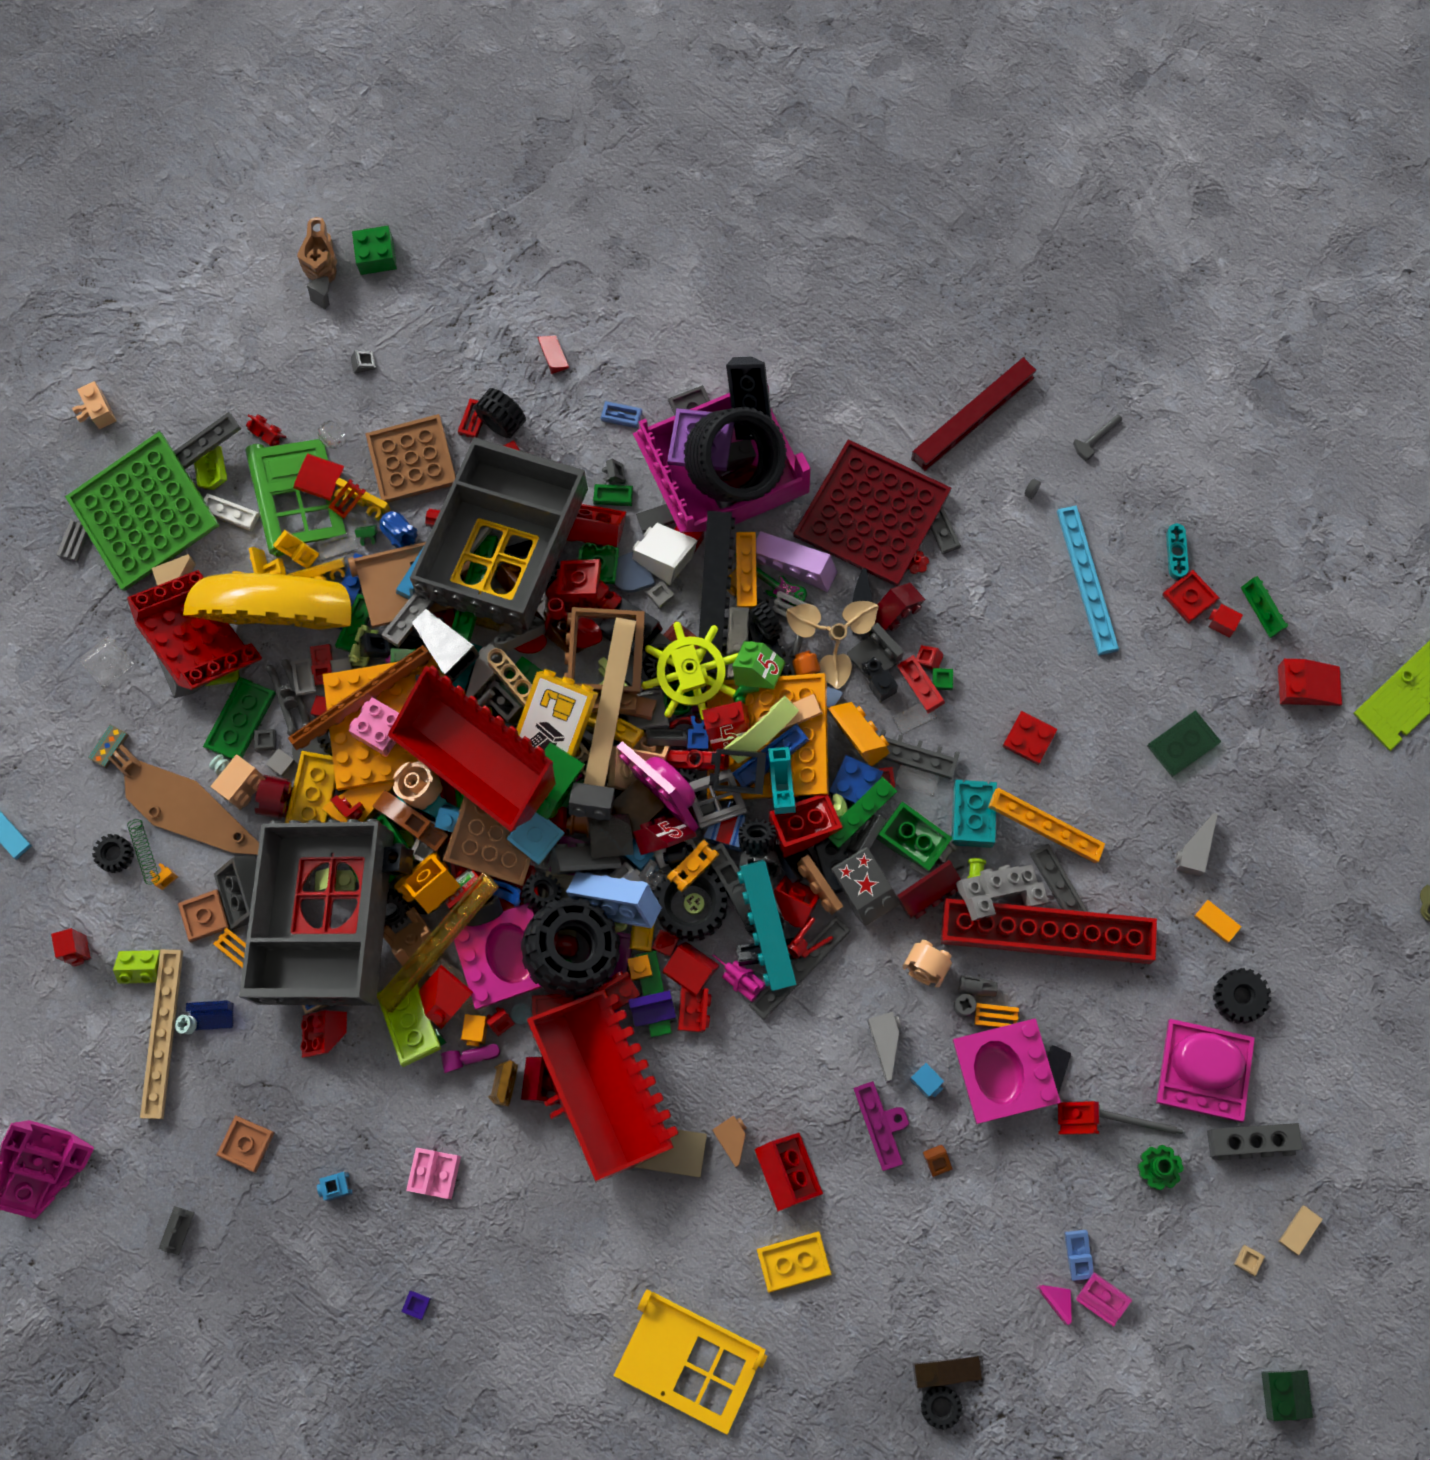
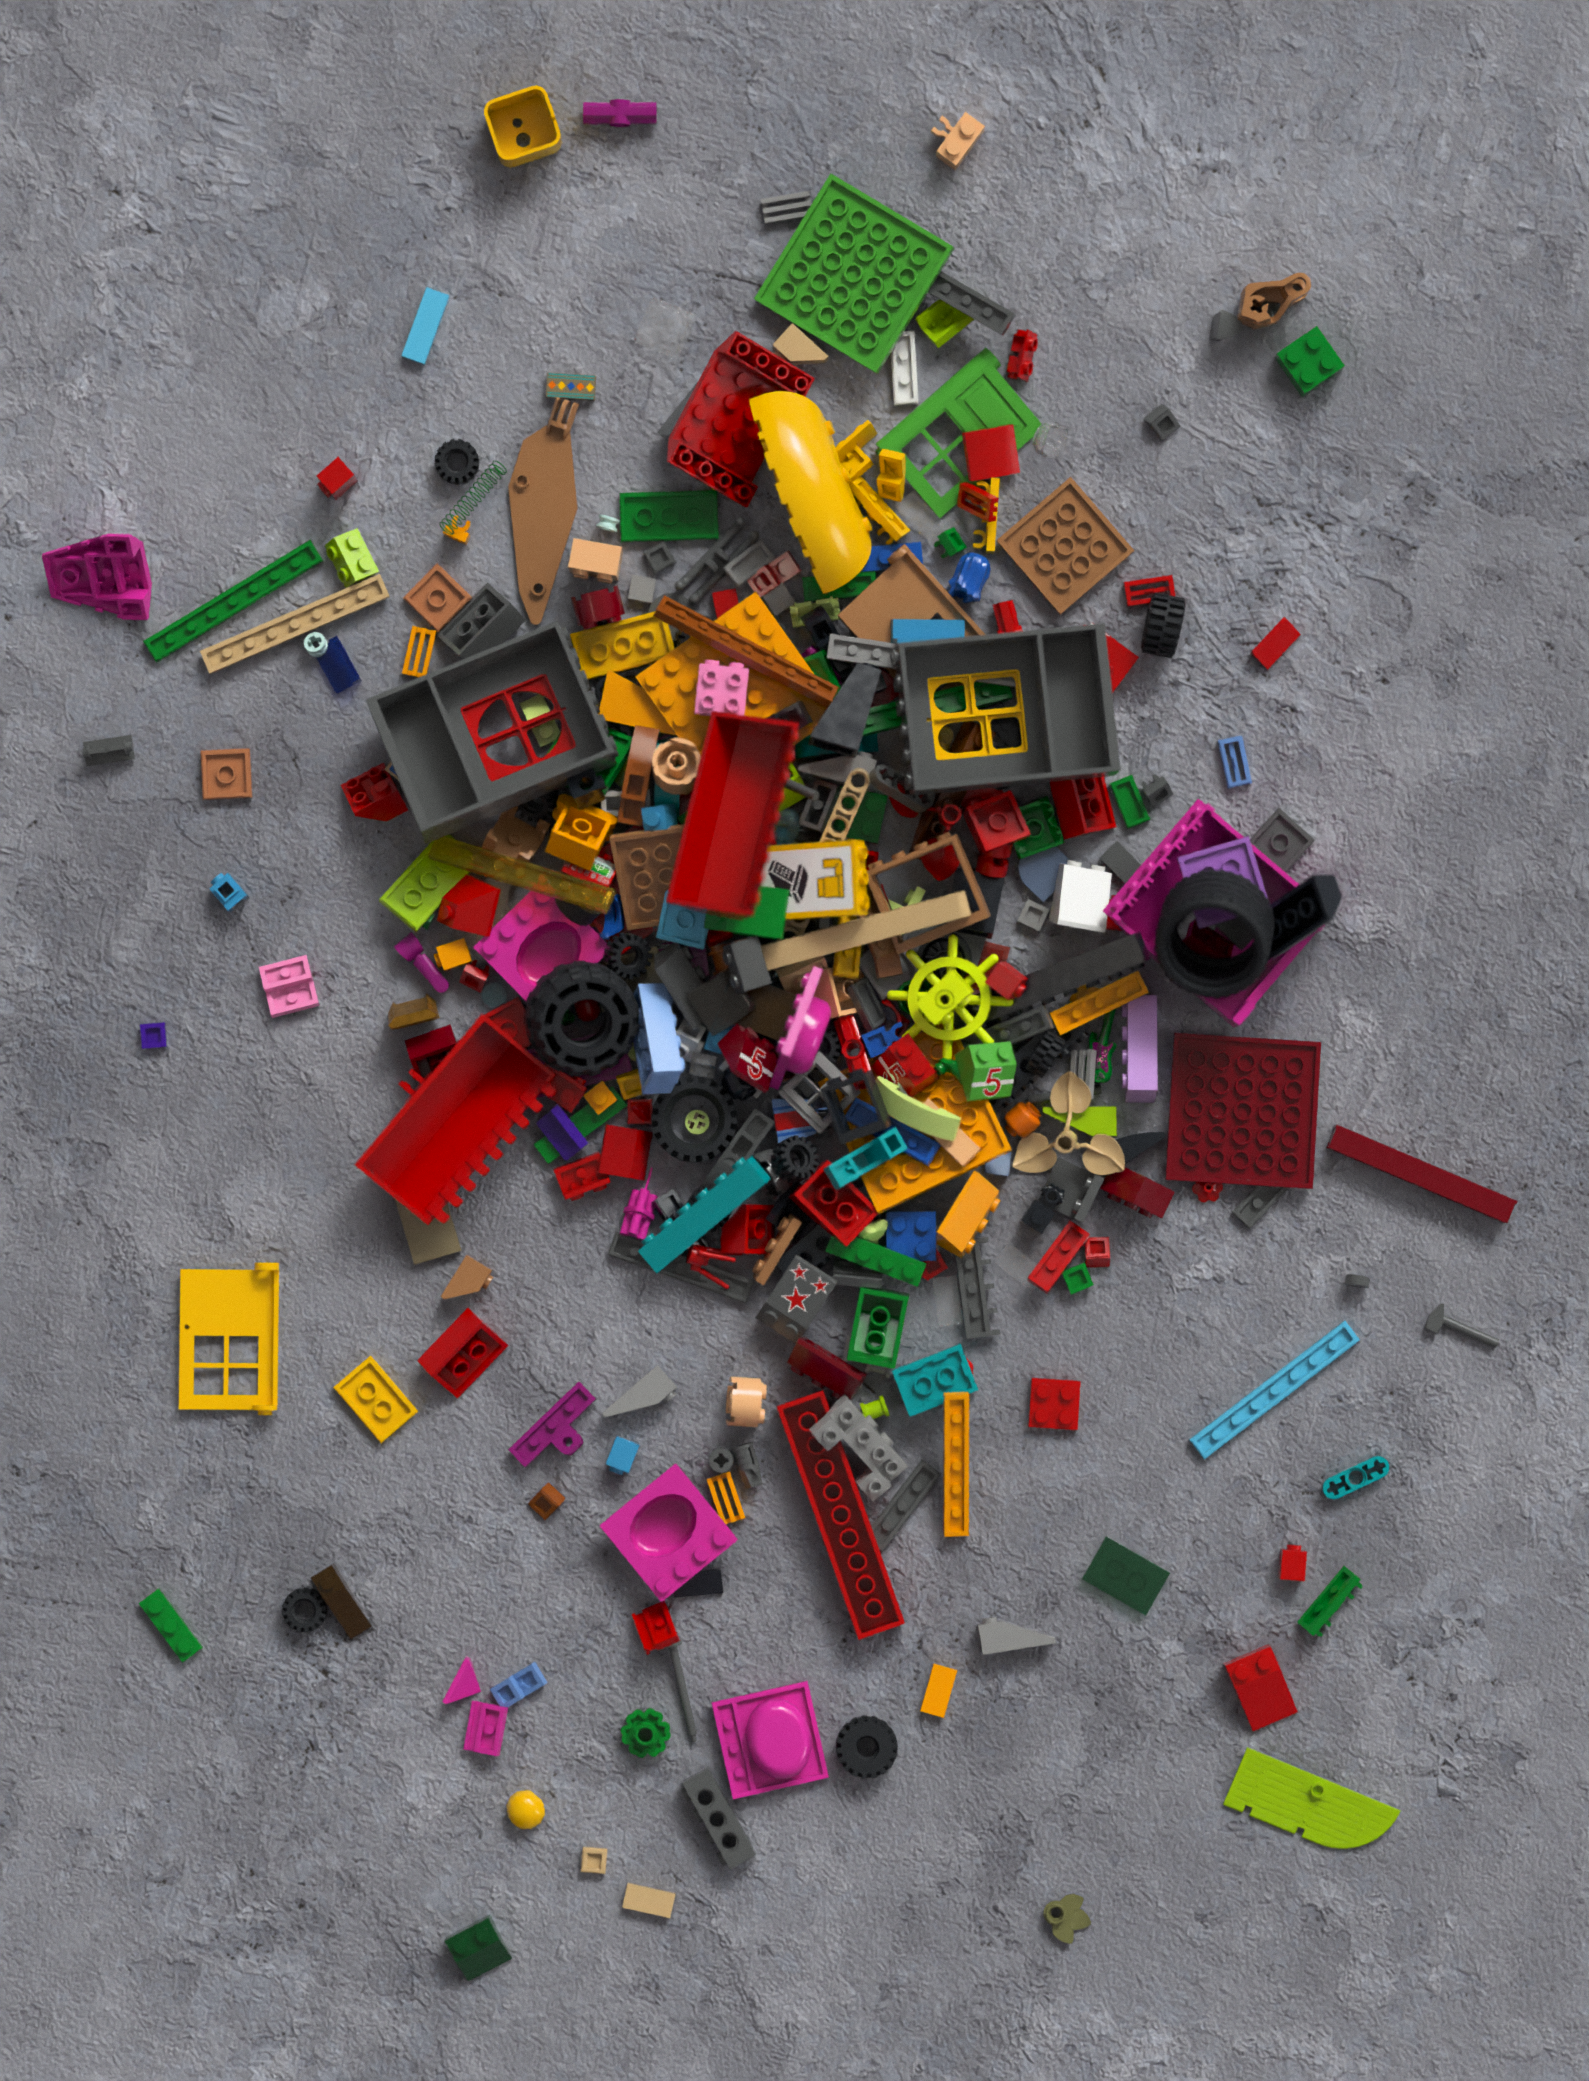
camera: 55 degrees right, 15 degrees up
(119, 1075) = (233, 601): none -> green tile
(344, 806) = (619, 696): red bracket -> none
(693, 866) = (731, 1105): light orange plate -> none
(698, 621) = (1007, 981): none -> red brick
(830, 615) = (1091, 1121): none -> lime slope
(1185, 1298) = (525, 1809): none -> yellow hair
(1190, 596) = (1307, 1514): red tile -> none

